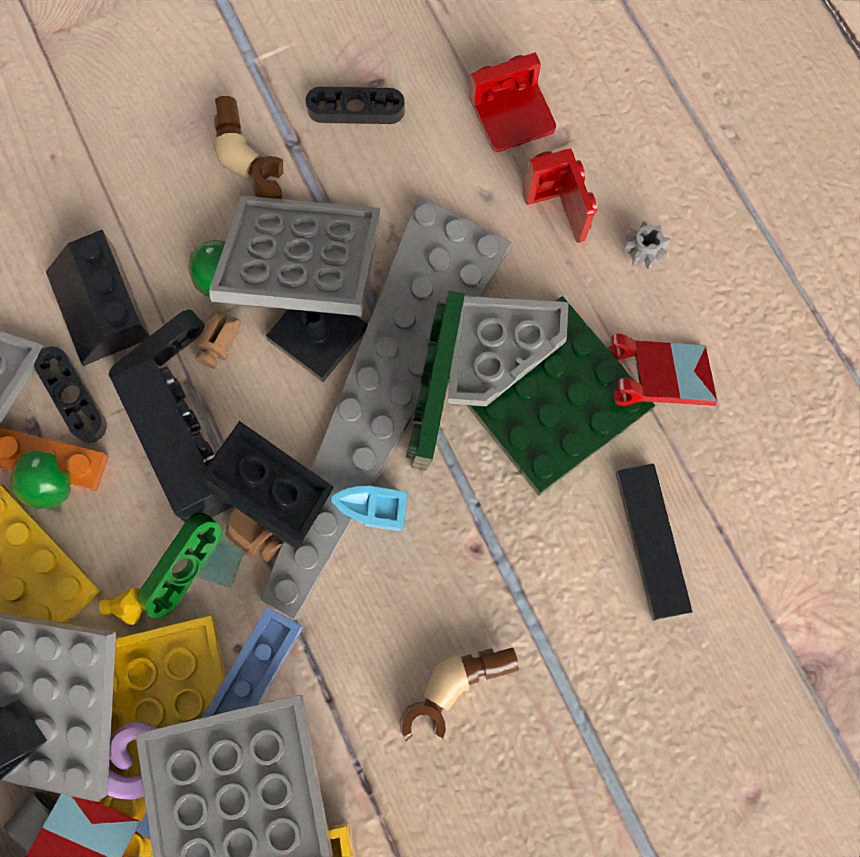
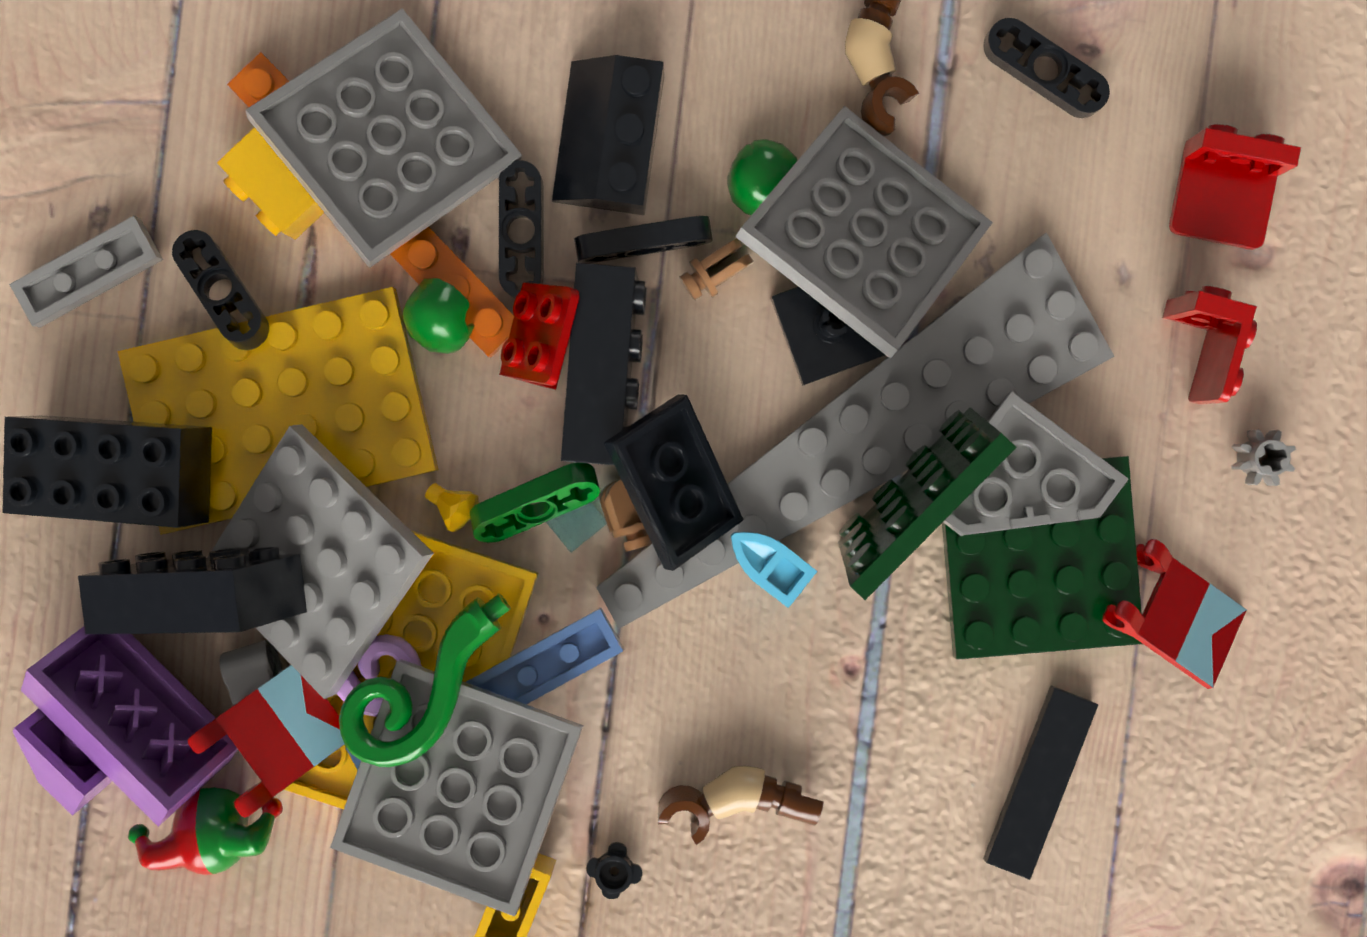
camera: 25 degrees right, 15 degrees up
(118, 451) = (539, 334): none -> red bracket
(172, 690) = (462, 637): none -> green plant
(401, 812) = (612, 884): none -> black plate

